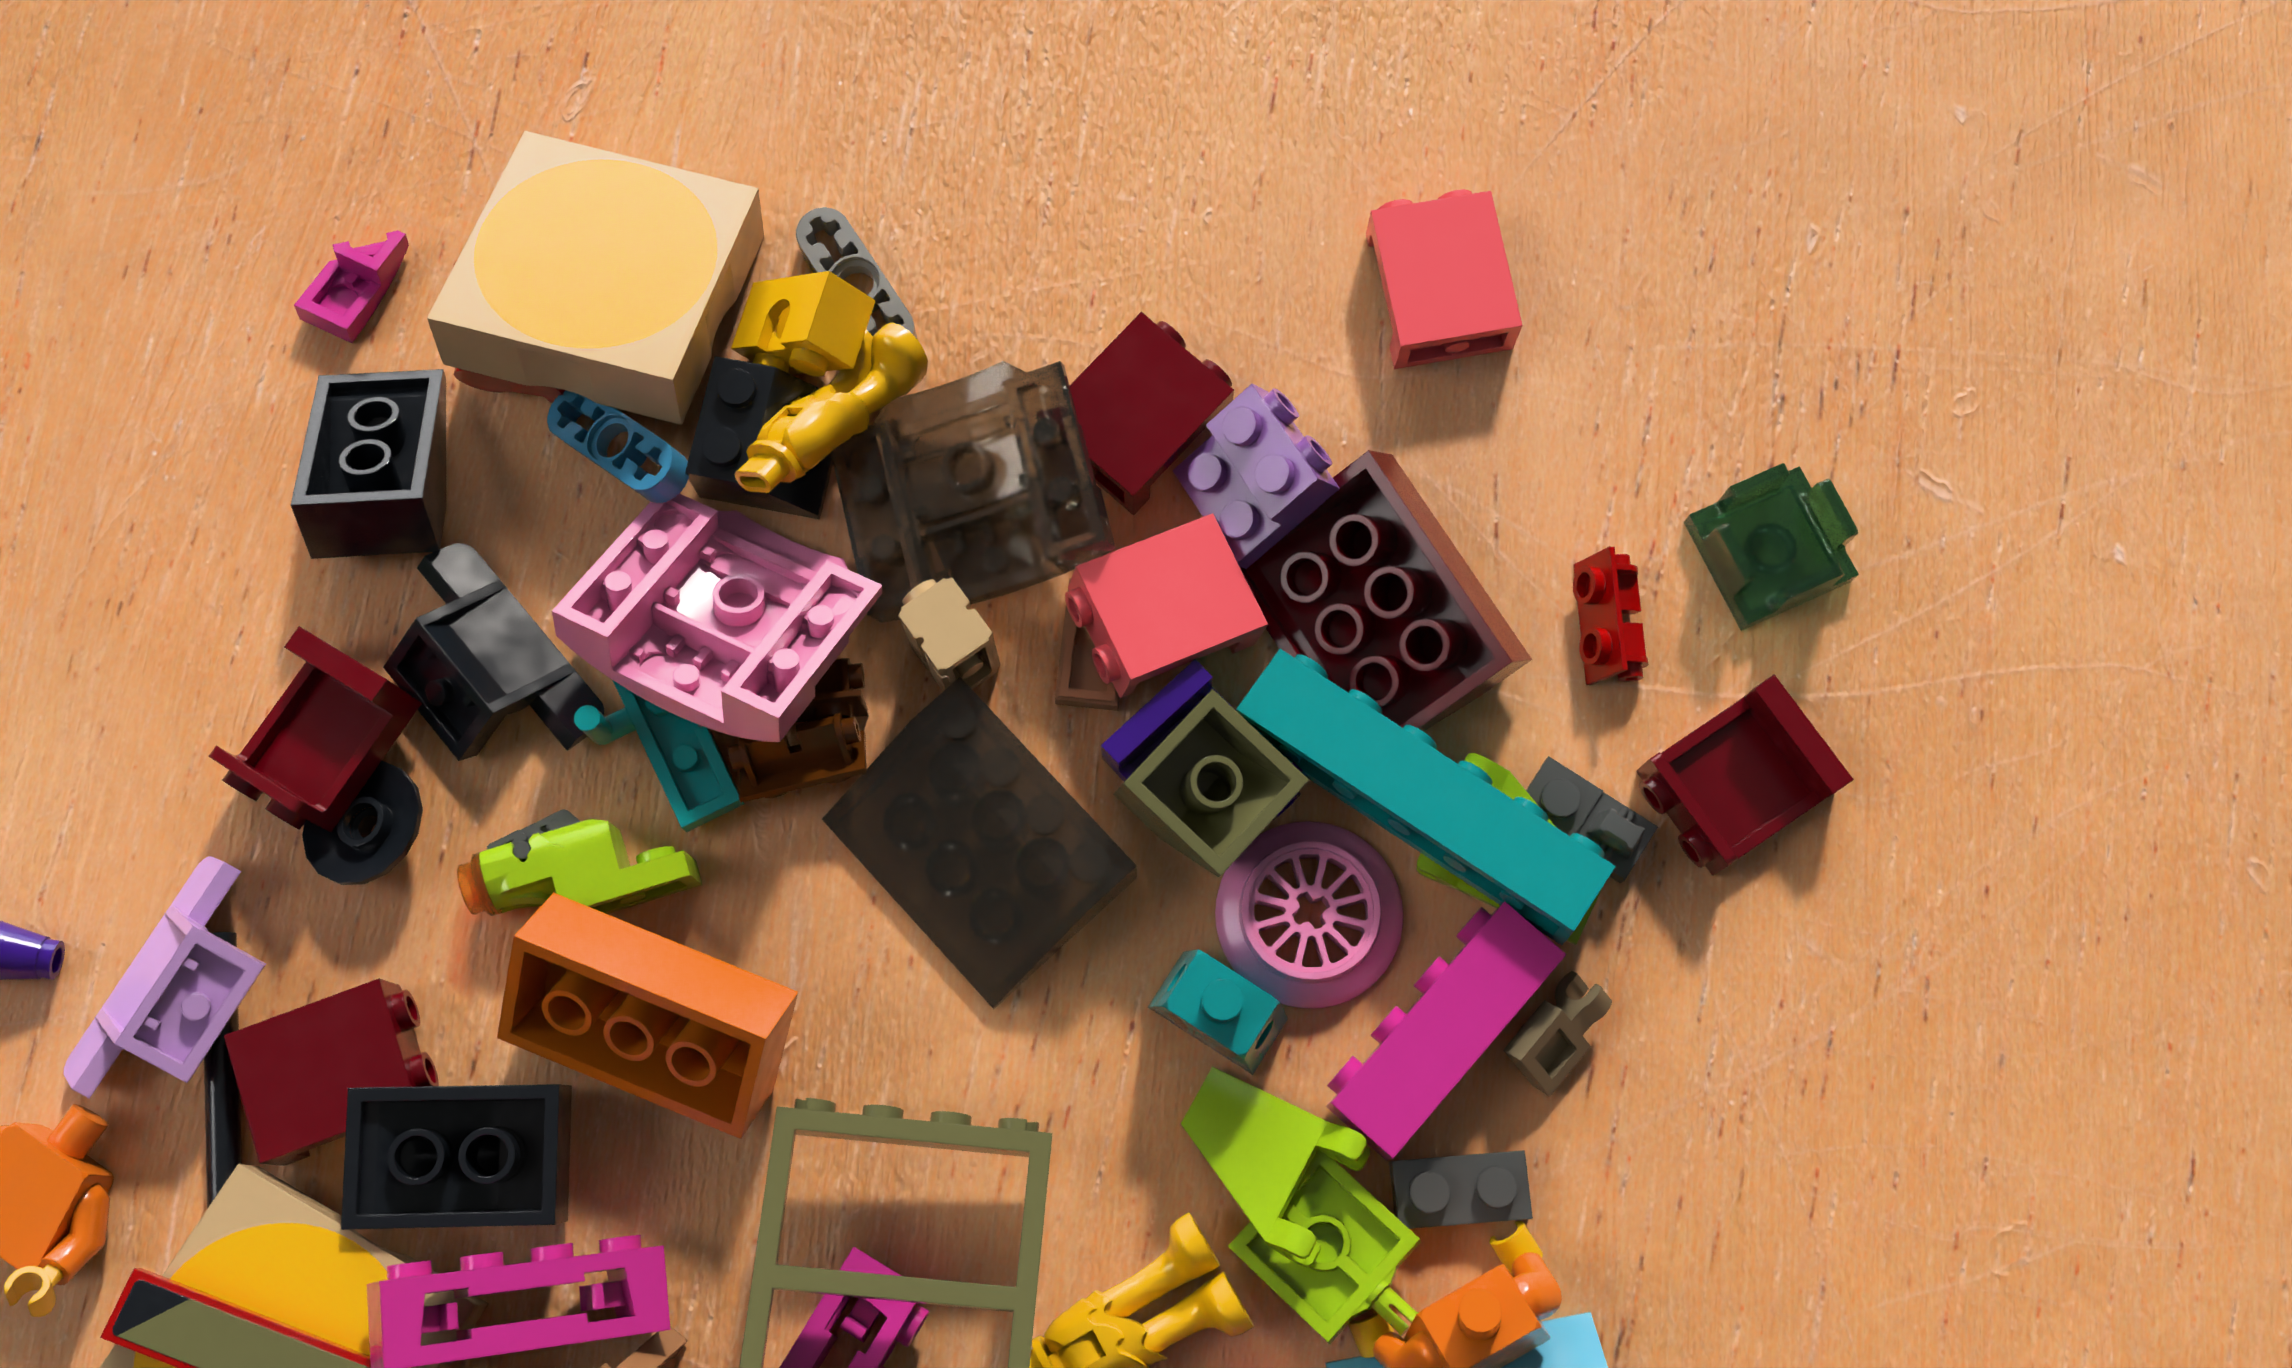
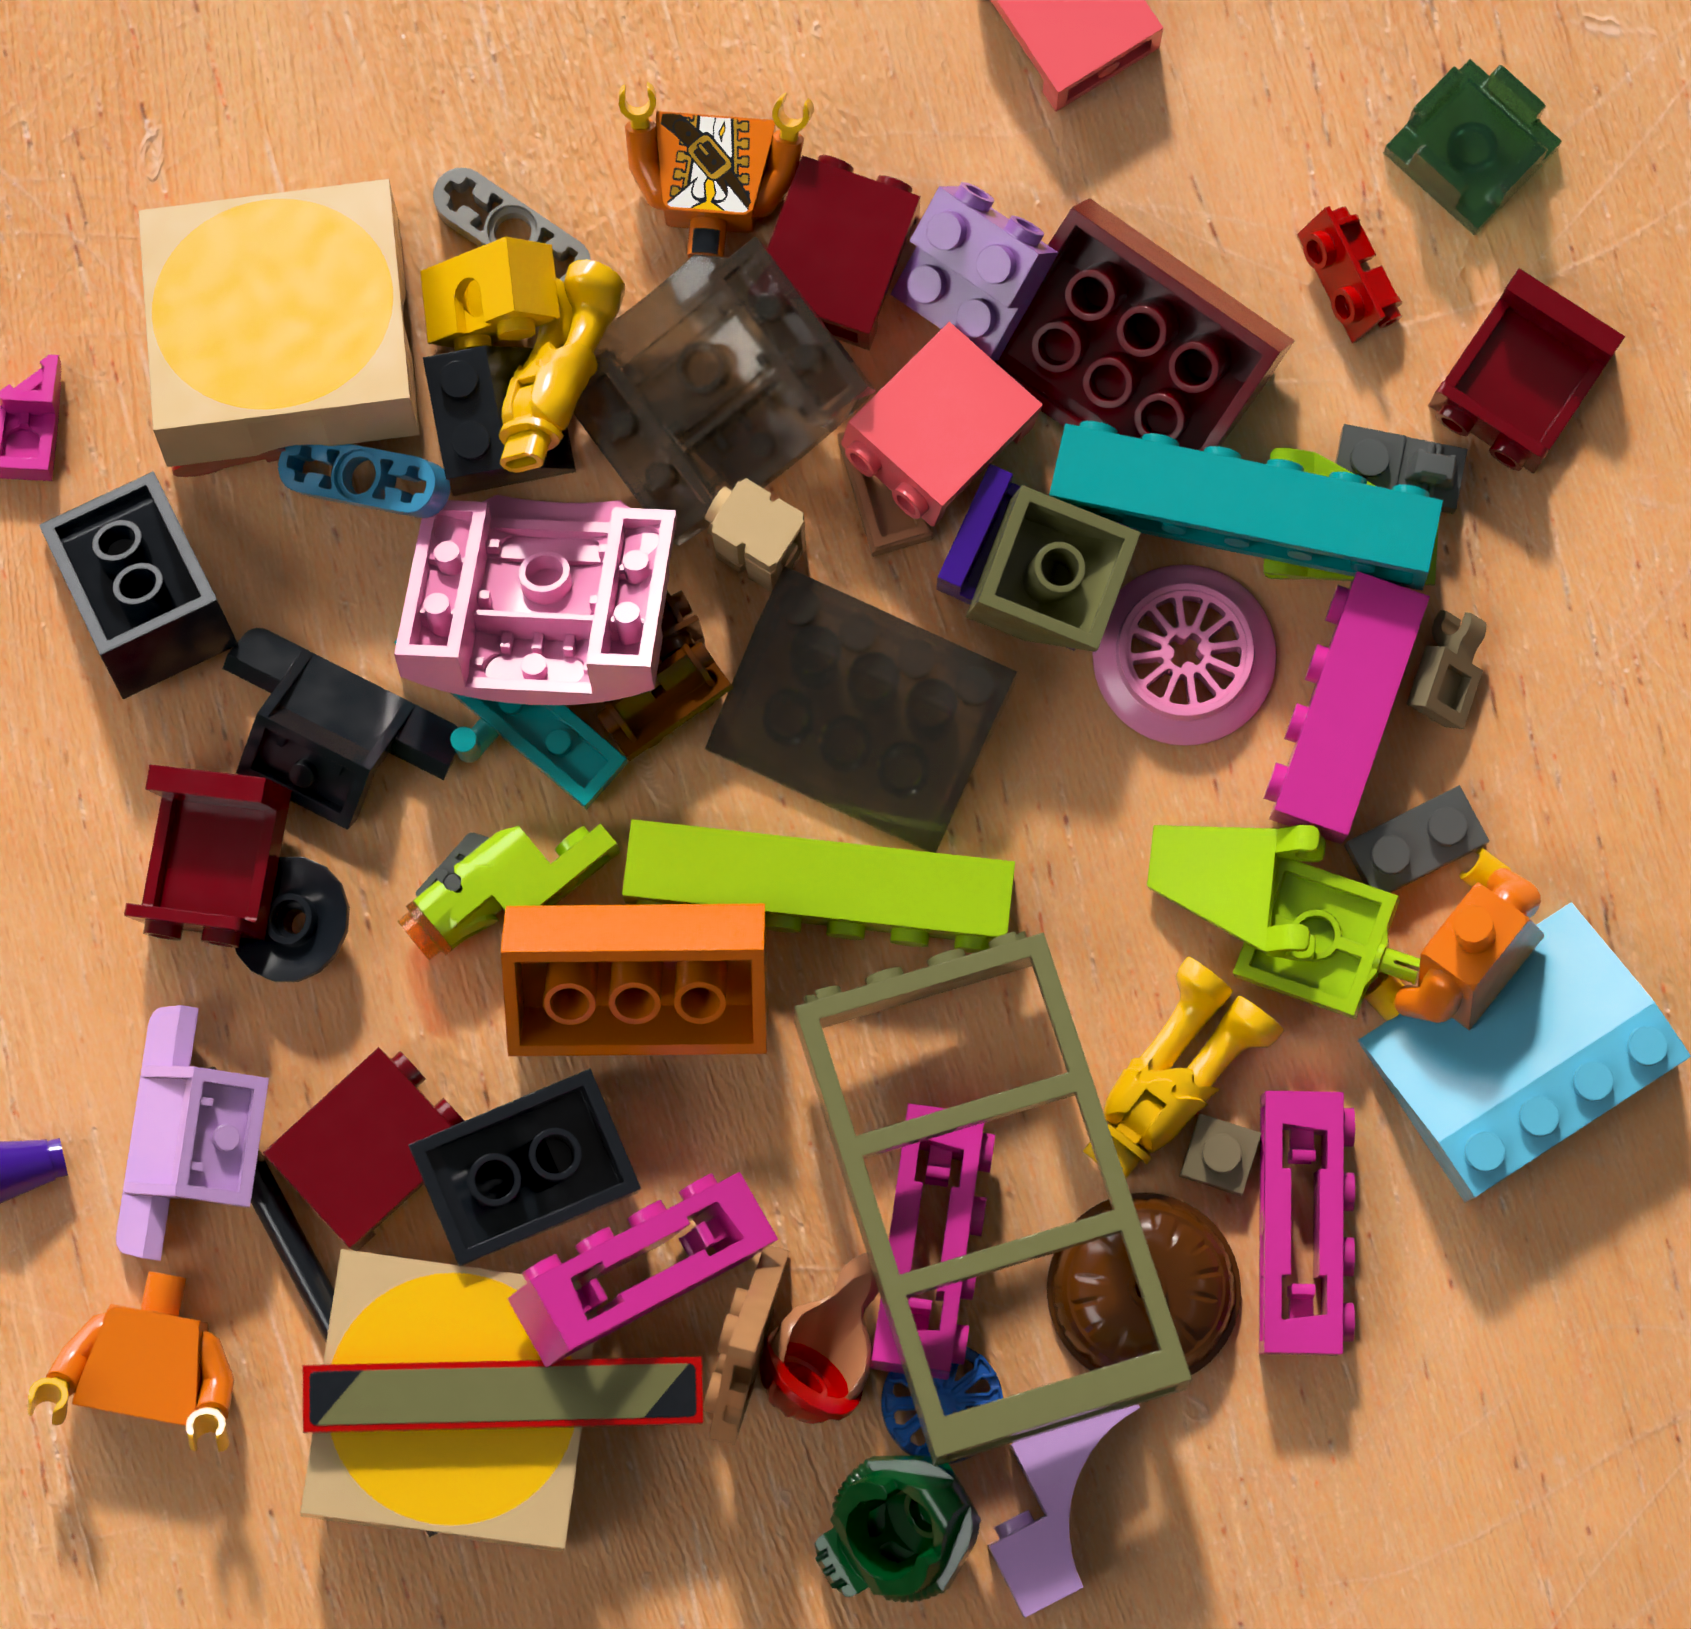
camera: 20 degrees left, 5 degrees up
(869, 992) = (823, 883): none -> lime brick
(1056, 295) = (712, 168): none -> torso
(1220, 1009) = (1140, 769): teal torso -> none

